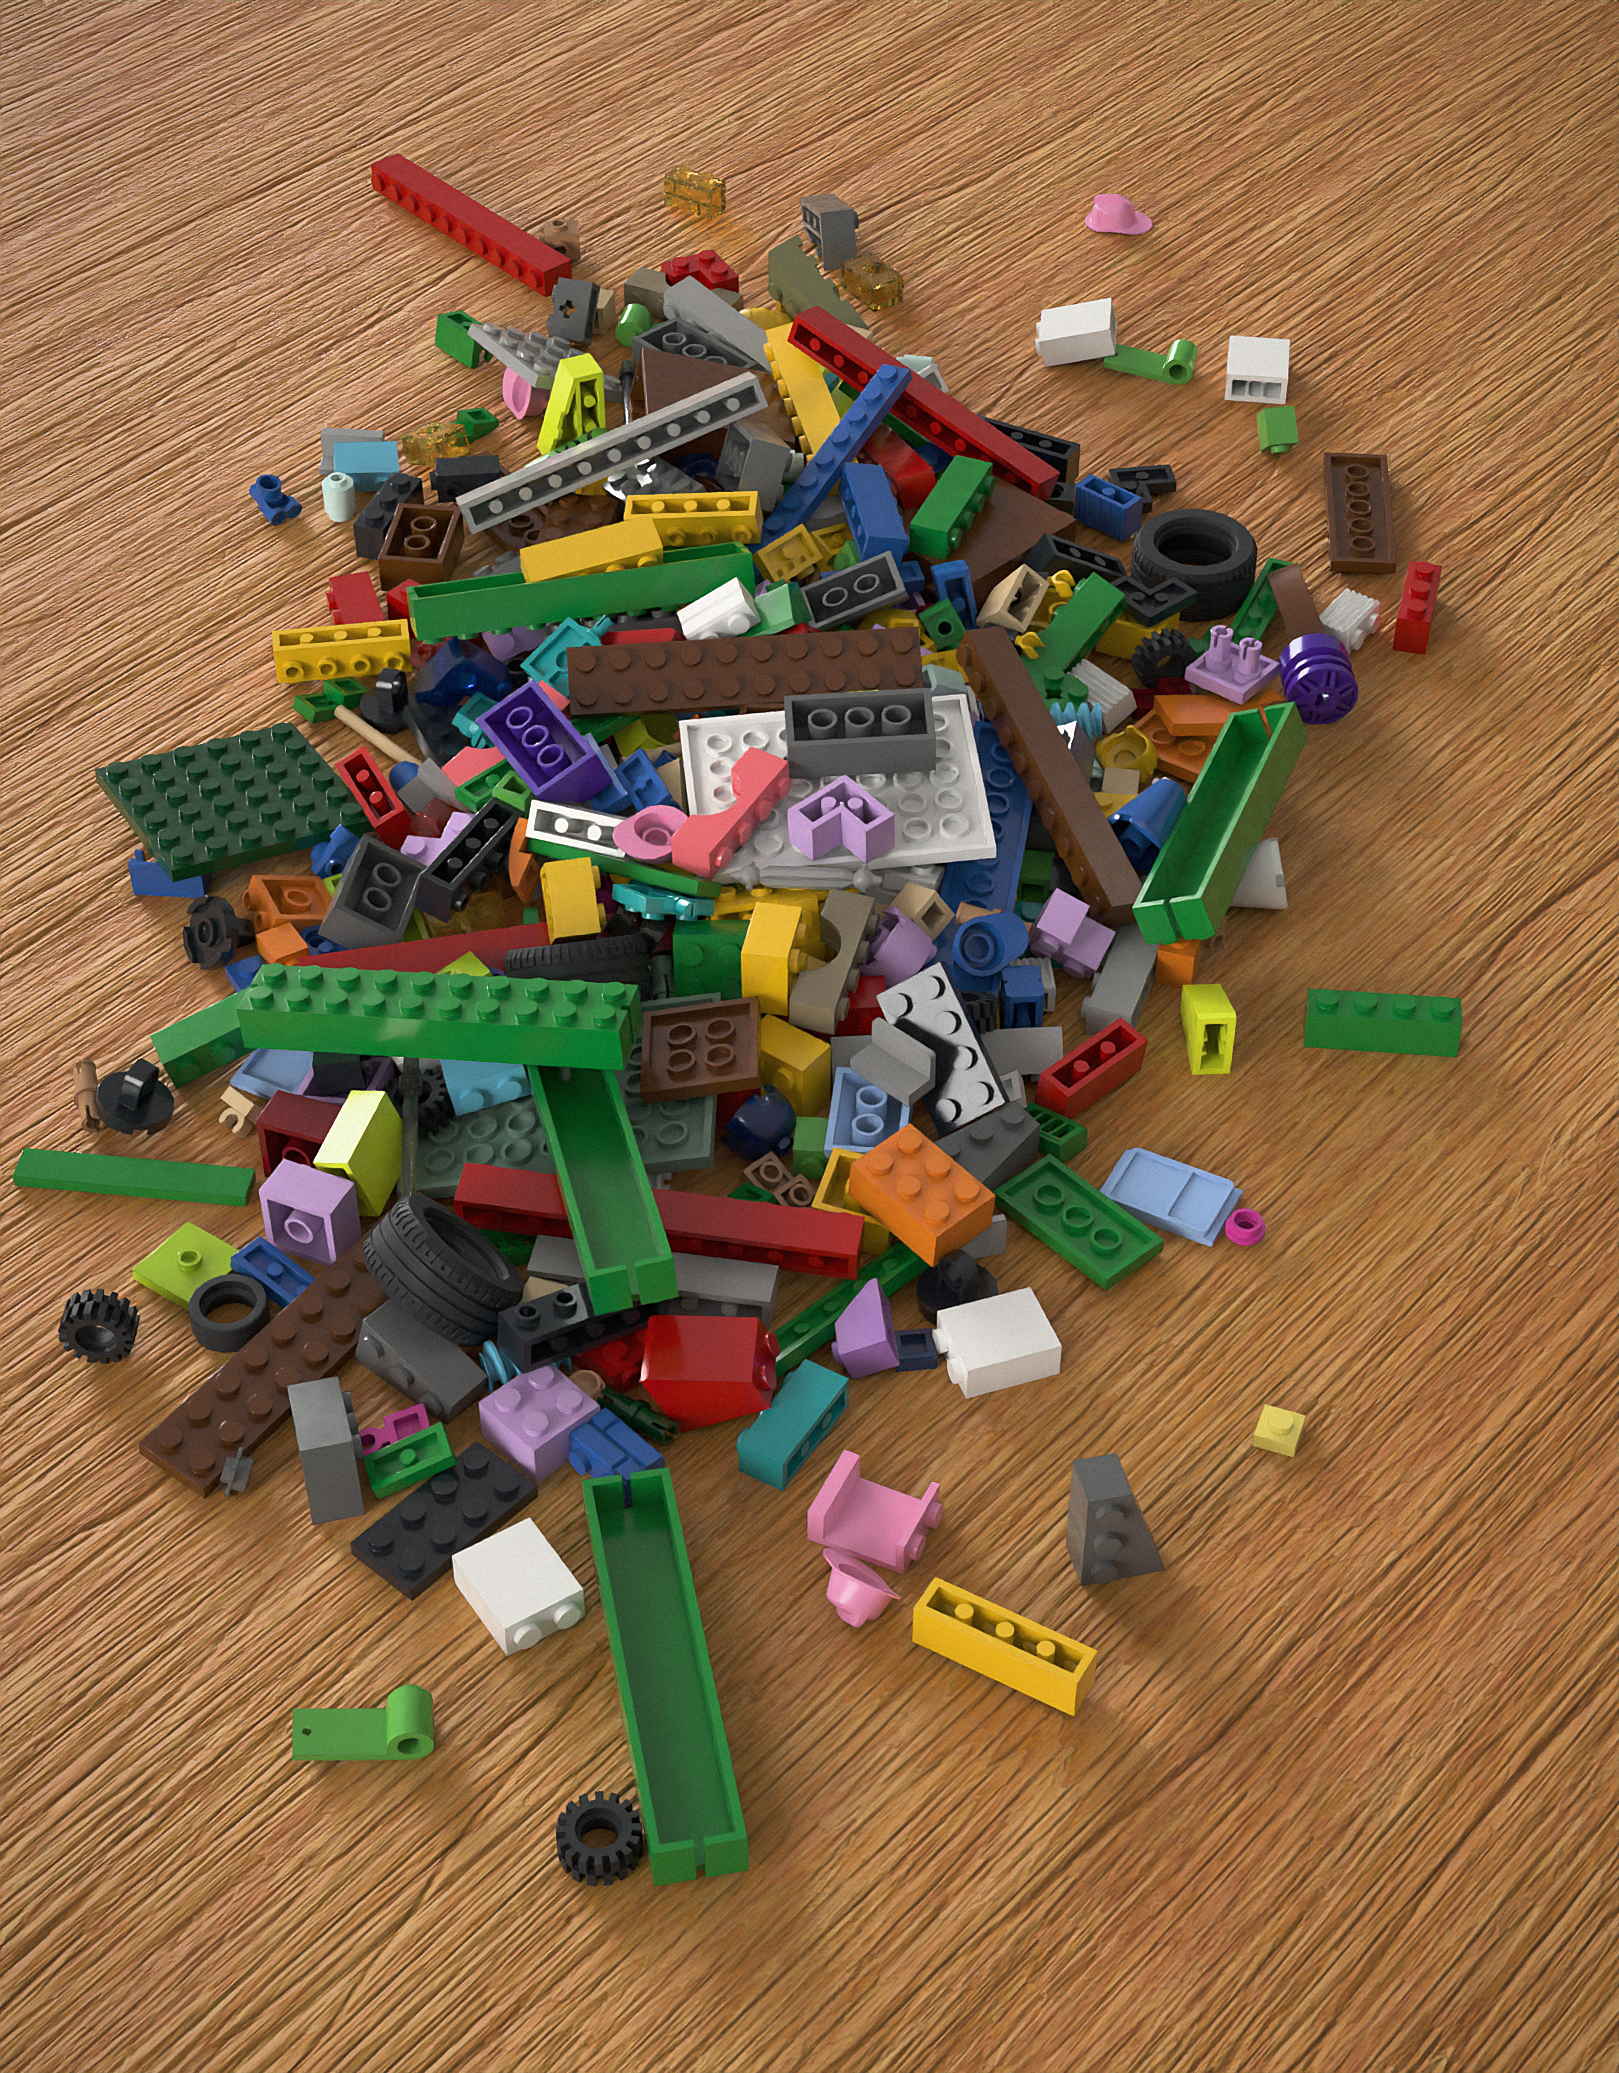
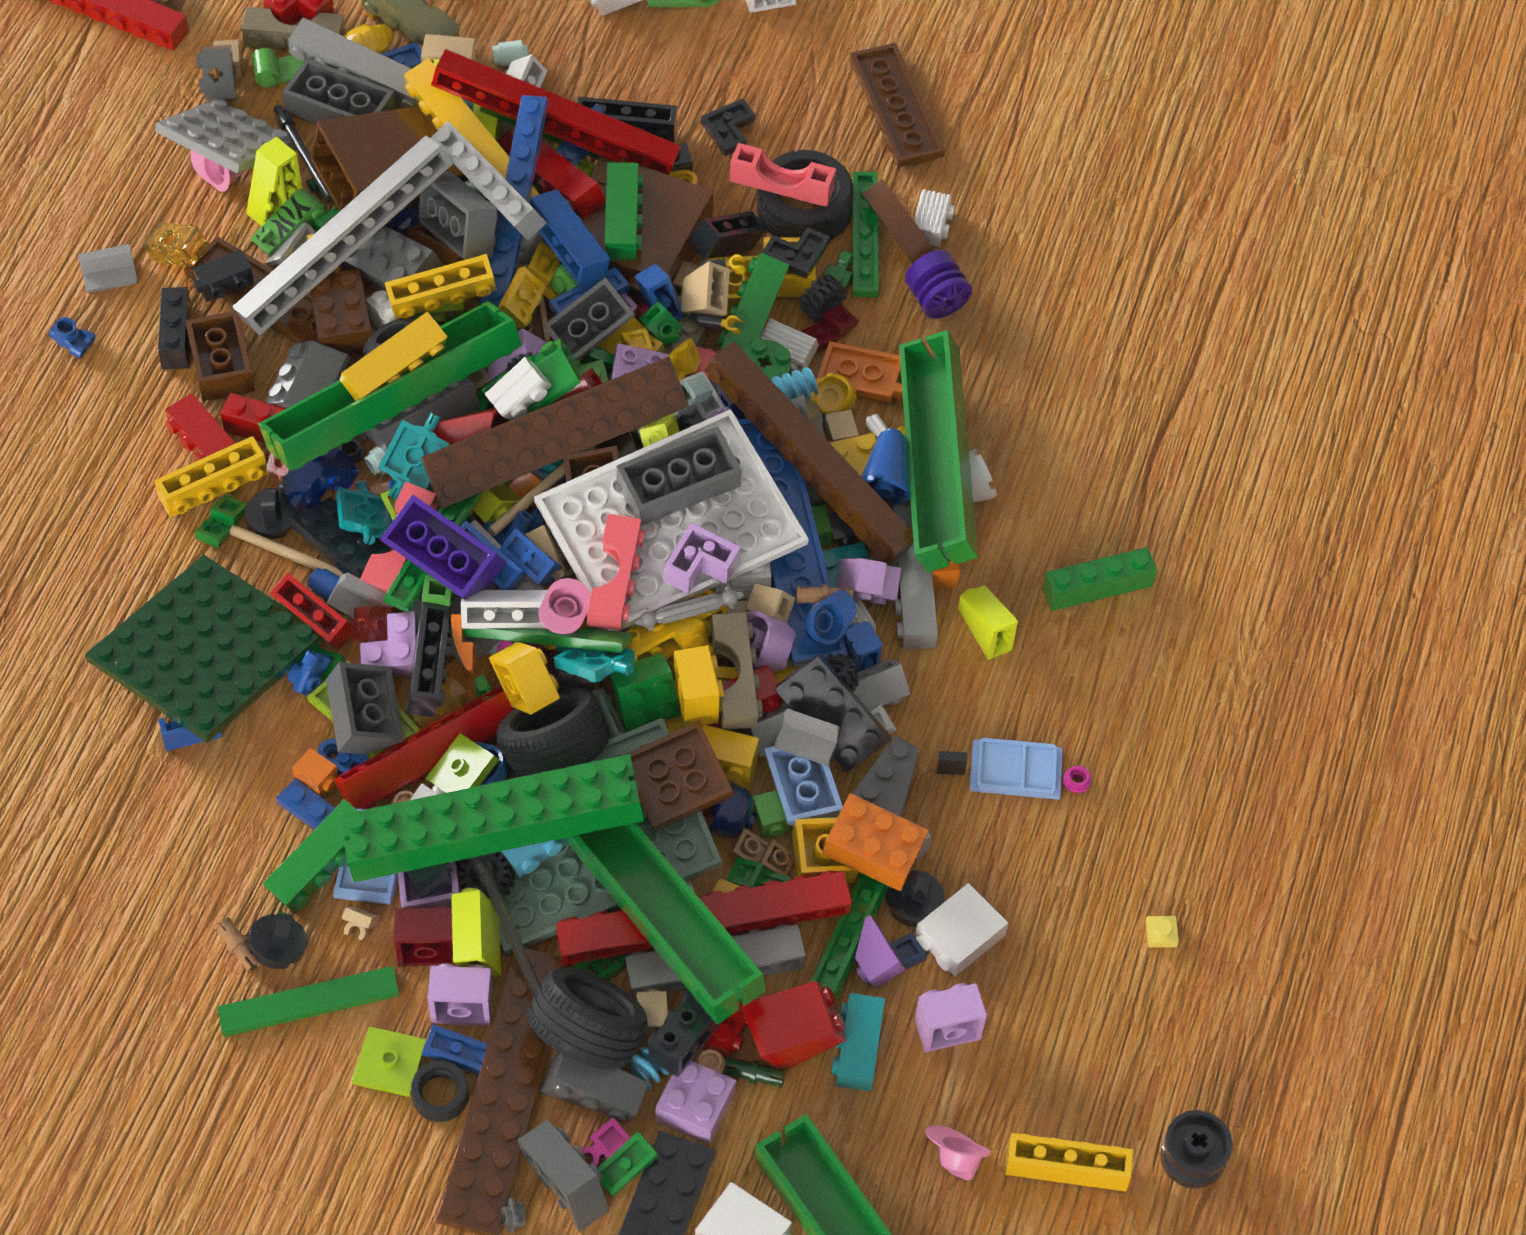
camera: 25 degrees left, 15 degrees up
(86, 1311) = (361, 1139): black tyre -> none
(215, 932) = (257, 775): black tile -> none
(286, 899) = (296, 728): orange plate -> none
(339, 496) = (124, 319): light aqua brick -> none
(366, 463) = (131, 283): medium azure brick -> none
(454, 340) = (135, 119): green hinge -> none
(476, 422) = (185, 209): green slope -> none
(611, 1448) = (757, 1110): blue brick -> none
(801, 432) = (489, 181): none -> light grey brick
(871, 1518) = (942, 1093): bright pink panel -> none
(925, 1426) = (950, 1017): none -> lavender brick
(1071, 1133) = (929, 738): green slope -> none
(1078, 1221) = (969, 812): green plate -> none
(1083, 1159) = (951, 763): none -> black tile
(1092, 1070) = (929, 688): red brick -> none
(1106, 1525) = (1096, 1054): dark grey wedge -> none
(1107, 508) = (712, 156): blue brick -> none
(1132, 504) = (754, 169): none -> coral arch
(1196, 1690) = (1196, 1149): none -> black wheel
(1205, 713) = (880, 334): orange tile -> none
(1231, 668) = (876, 295): lavender plate -> none
(1277, 429) = (808, 41): bright green brick -> none
(1417, 607) = (976, 189): red brick -> none

